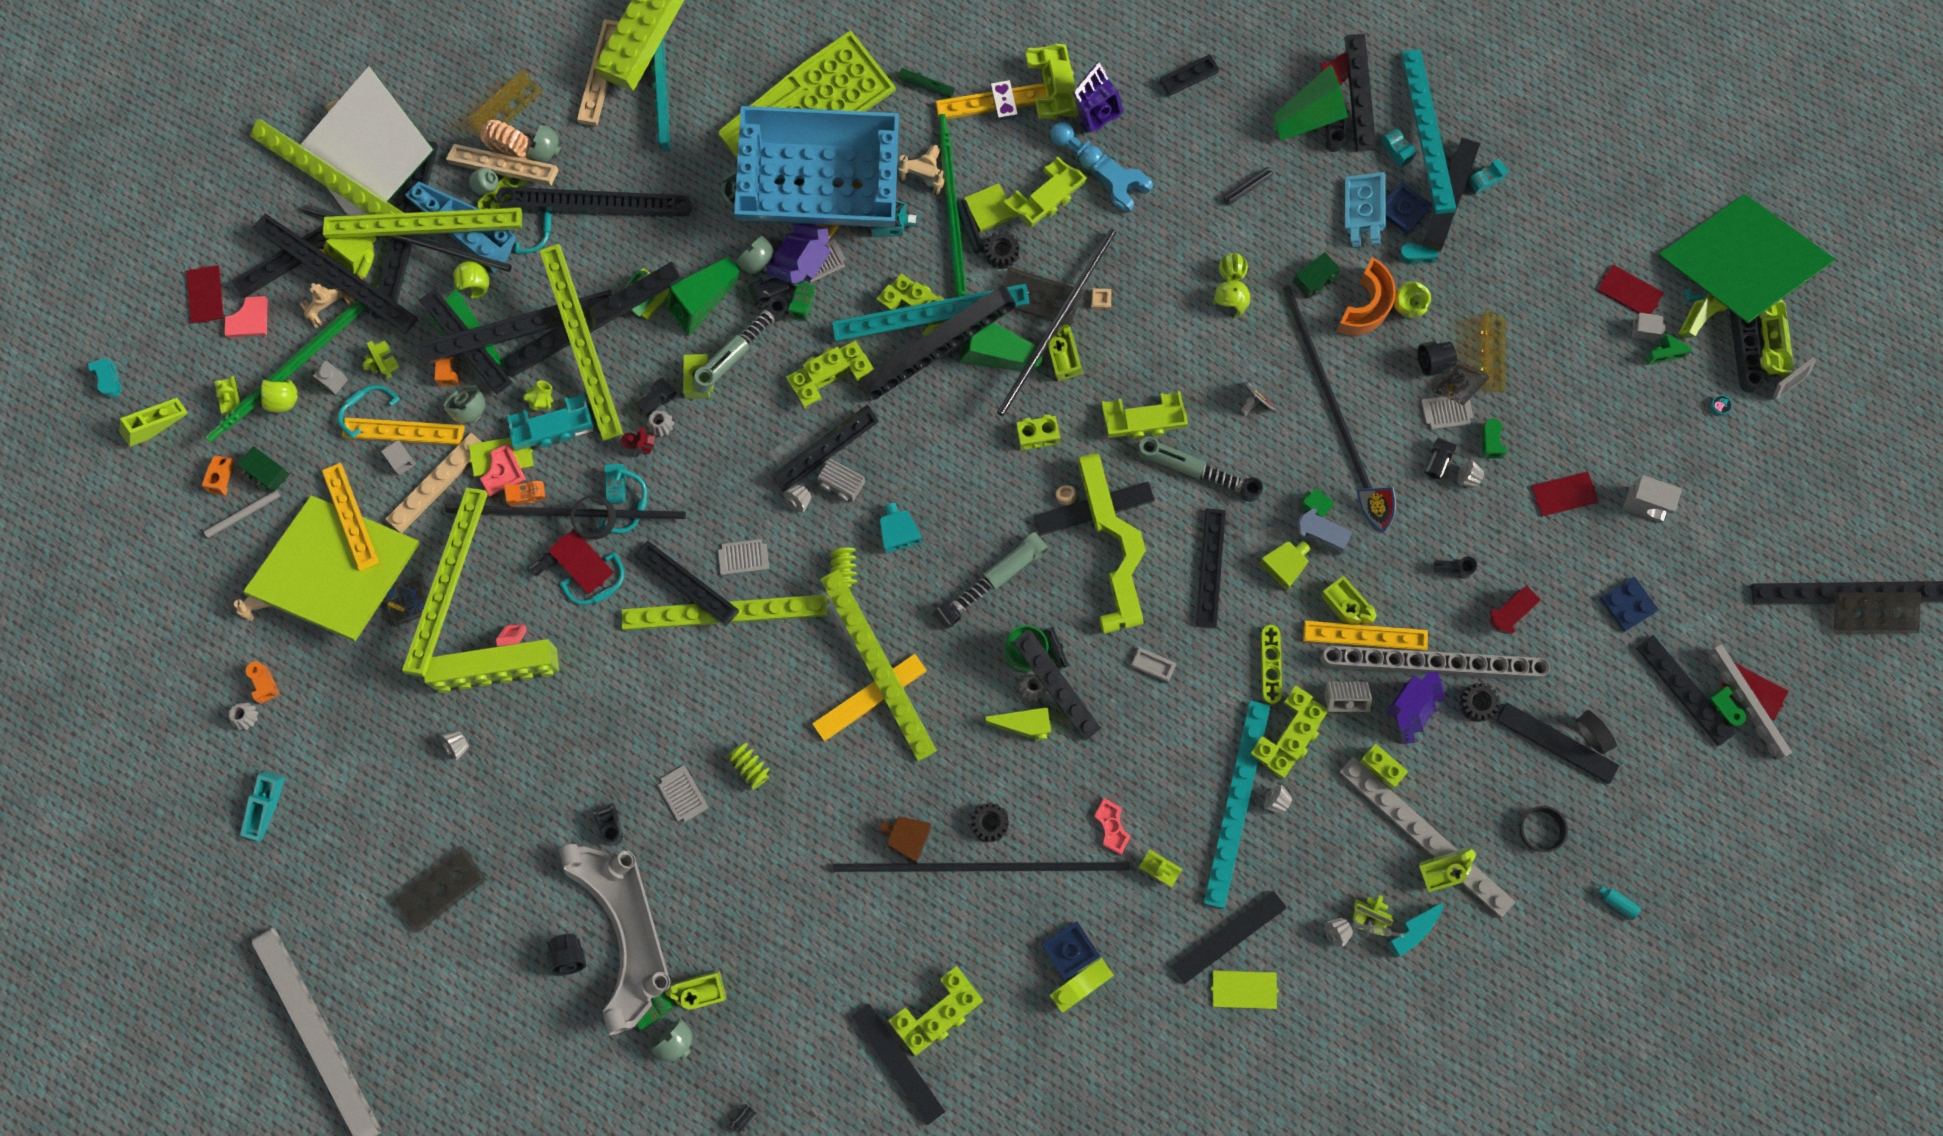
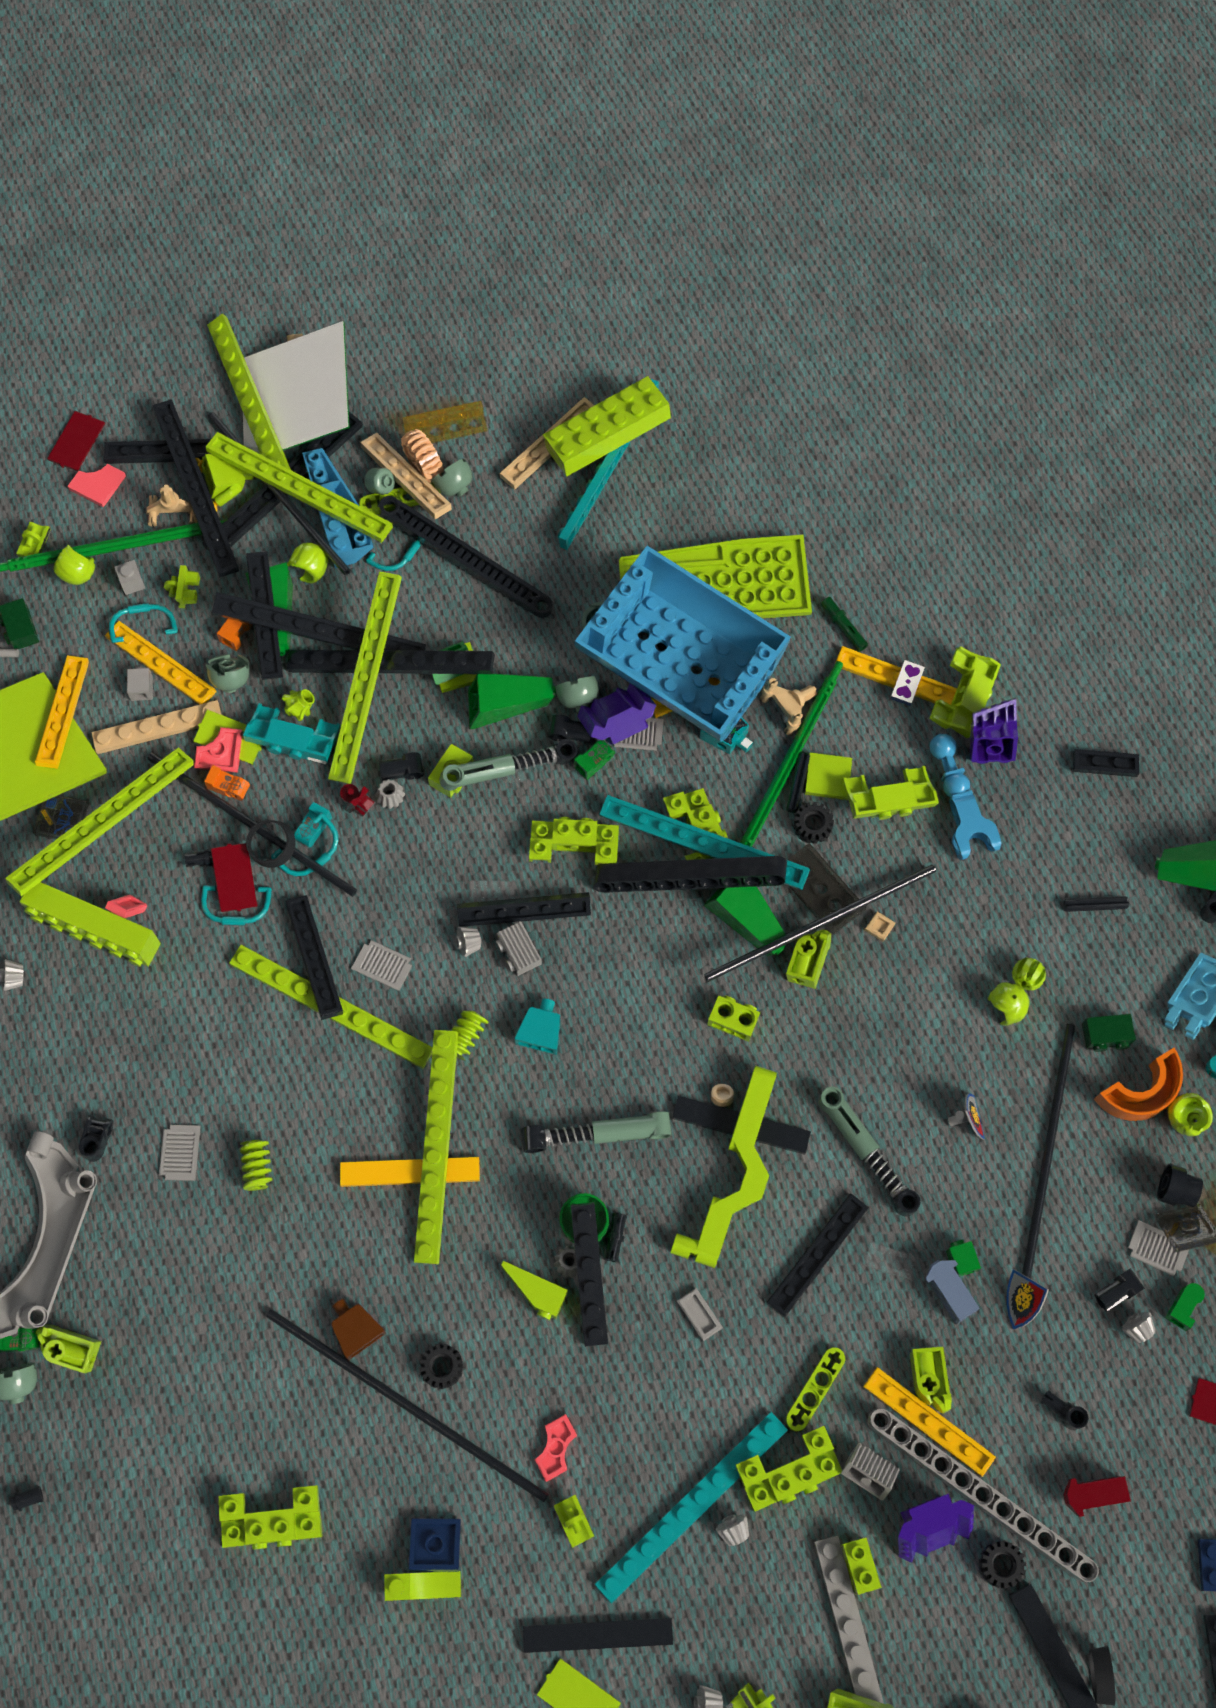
camera: 30 degrees right, 5 degrees down
(898, 1064) = (202, 1545): black tile -> none
(1146, 420) = (845, 1070): lime bracket -> none
(1286, 563) = (895, 1297): lime torso -> none

